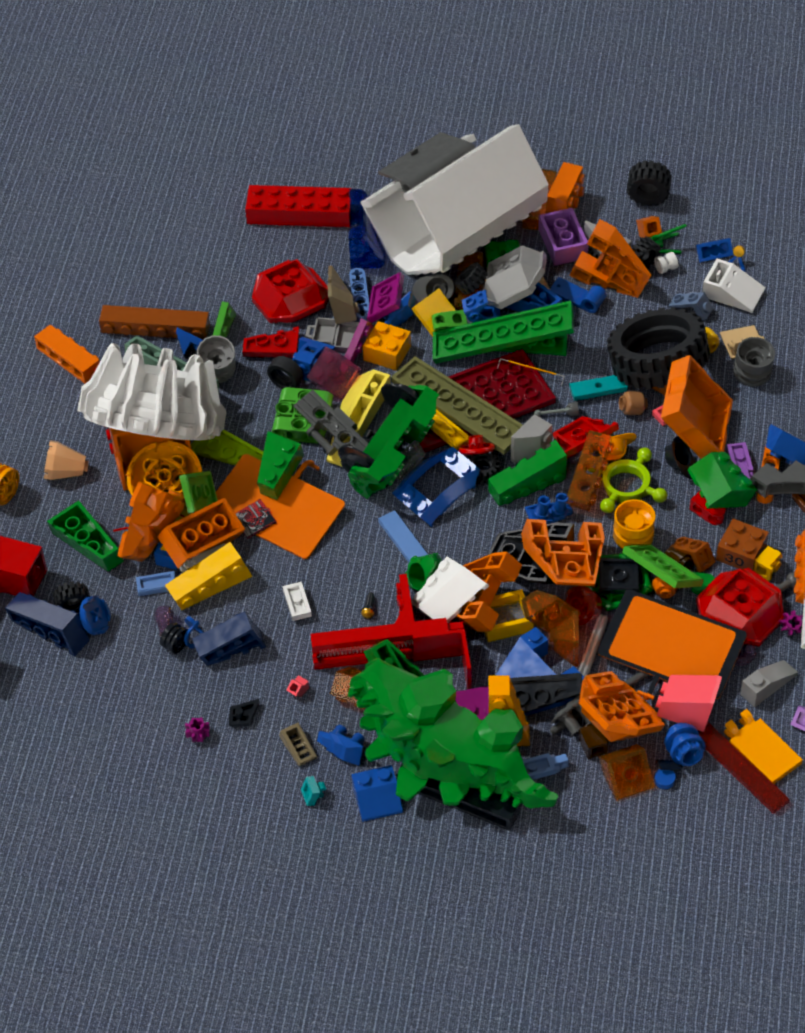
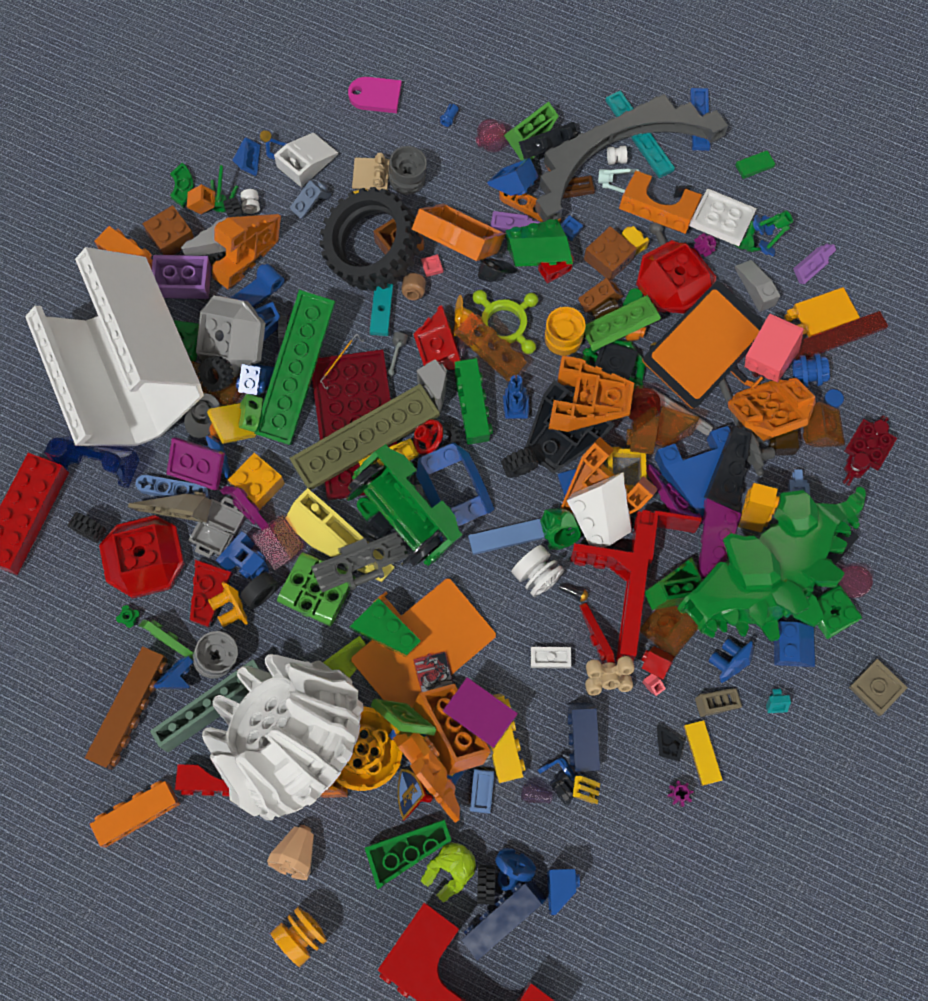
camera: 75 degrees left, 20 degrees up
(80, 651) = (561, 888): none -> blue slope
(83, 568) = (457, 861): none -> lime hair
(179, 666) = (592, 790): none -> yellow tile
(219, 541) = (480, 712): none -> magenta tile
(234, 300) = (133, 615): none -> green plate
(243, 743) = (703, 753): none -> yellow tile
(270, 354) = (229, 595): none -> light orange connector
(290, 641) = (609, 675): none -> tan gear
(300, 246) = (87, 527): none -> black tyre
(318, 681) = (657, 662): none -> red brick
(325, 626) = (597, 637): none -> red wing
(356, 875) = (878, 687): none -> dark tan plate
(375, 564) = (541, 574): none -> white wheel
(423, 832) = (846, 612): none -> green brick
(426, 160) = (52, 362): dark grey door -> none
(463, 835) = (856, 581): none -> clear pink piece
(479, 525) = (519, 463): none -> black tyre
(489, 659) = (669, 495): none -> magenta wing
(608, 210) = (168, 231): none -> dark orange brick
(618, 812) = (868, 448): none -> dark red piece
(649, 183) = (149, 178): black tyre -> none
(666, 214) = (183, 184): none -> green tile
(667, 765) = (824, 392): black piece -> none
(758, 509) = (571, 227): none -> blue plate

